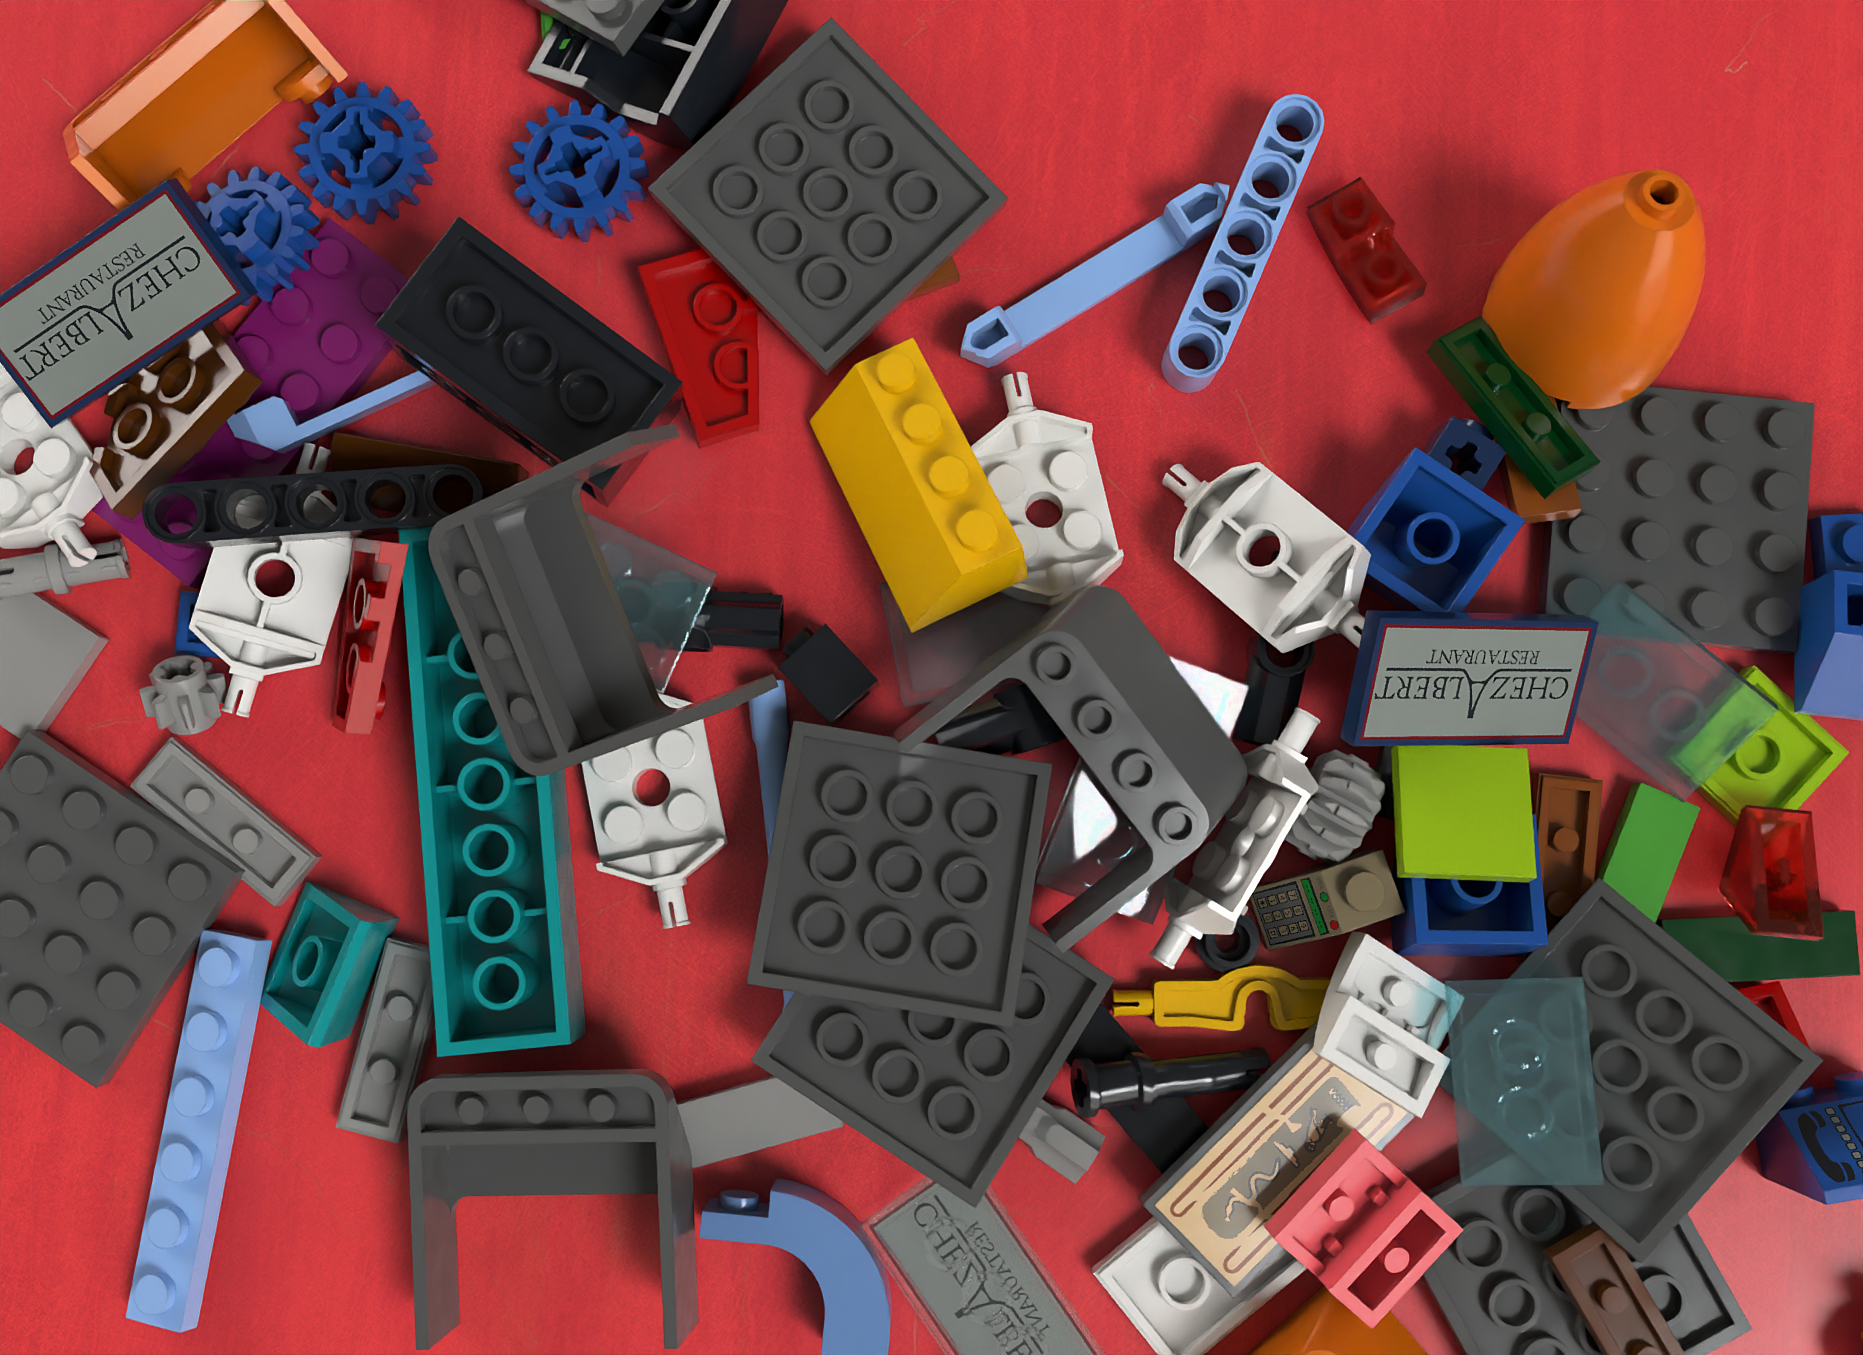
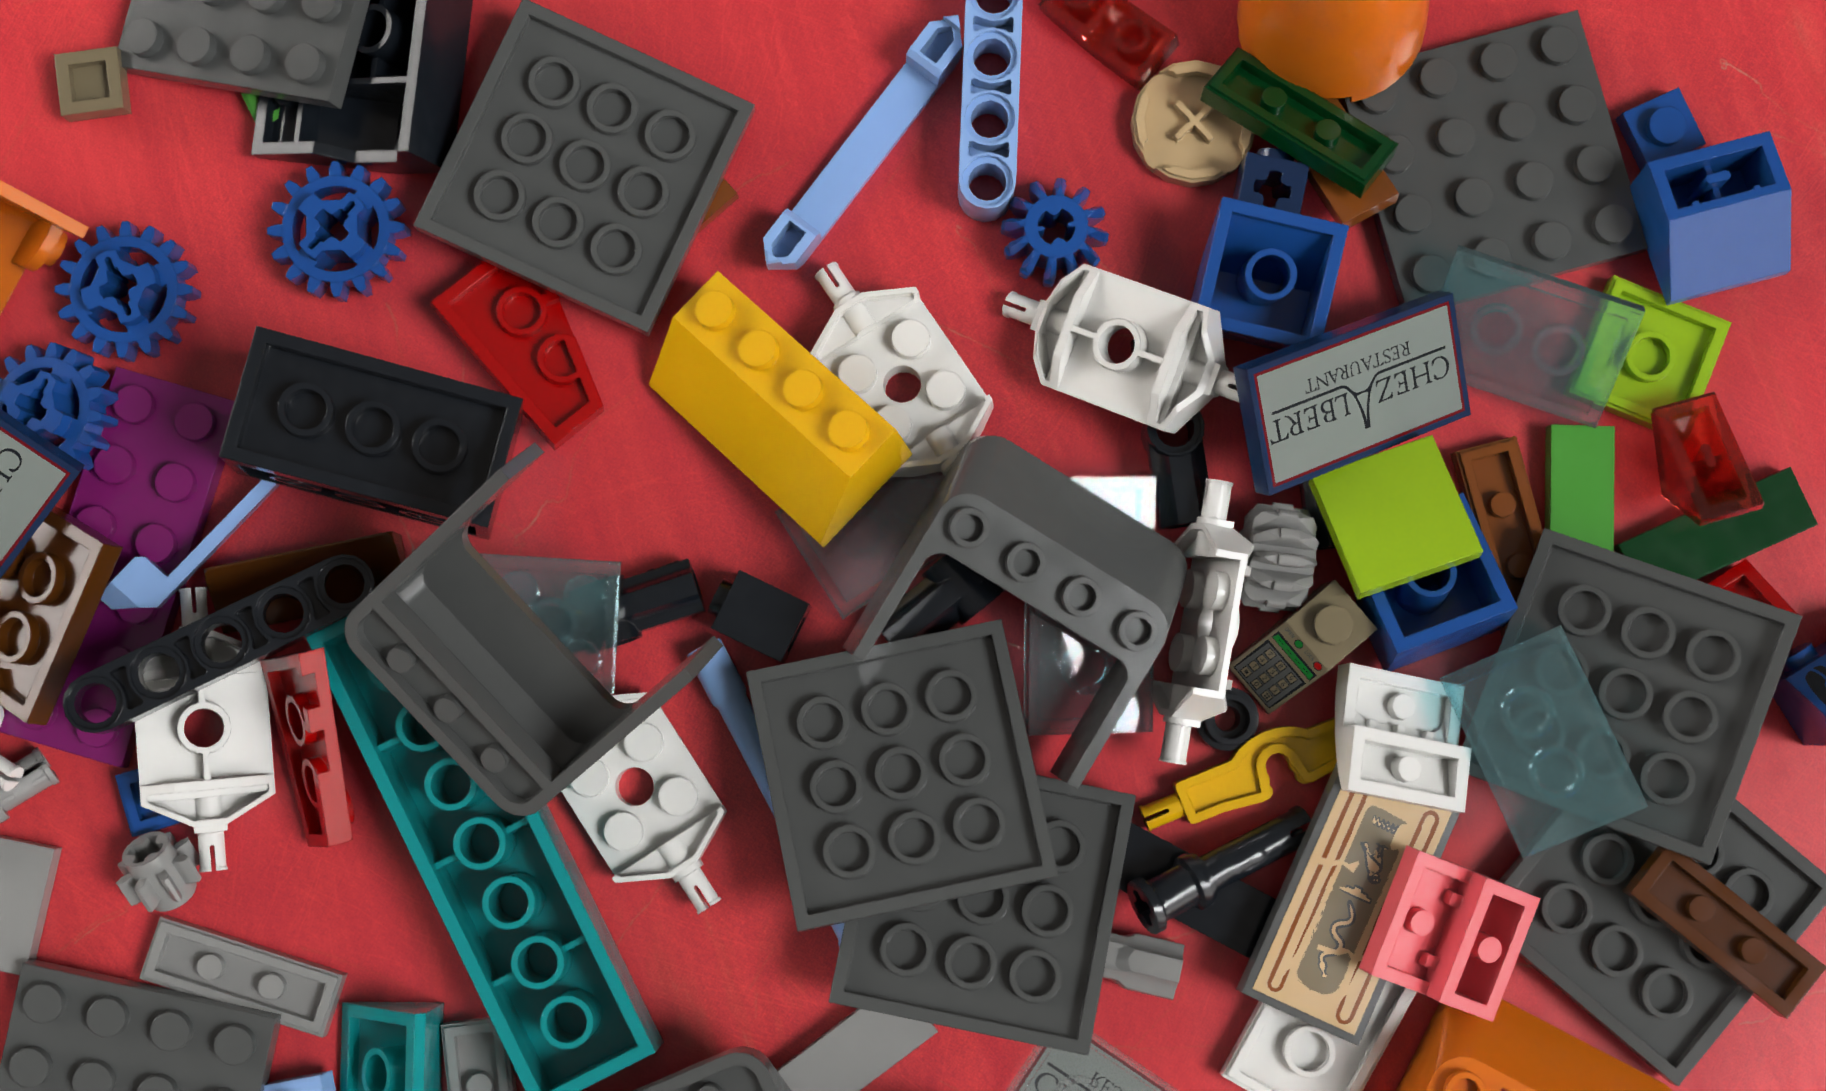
camera: 25 degrees left, 0 degrees up
(1240, 402) = (1048, 212): none -> blue gear
(1394, 377) = (1181, 134): none -> tan tile

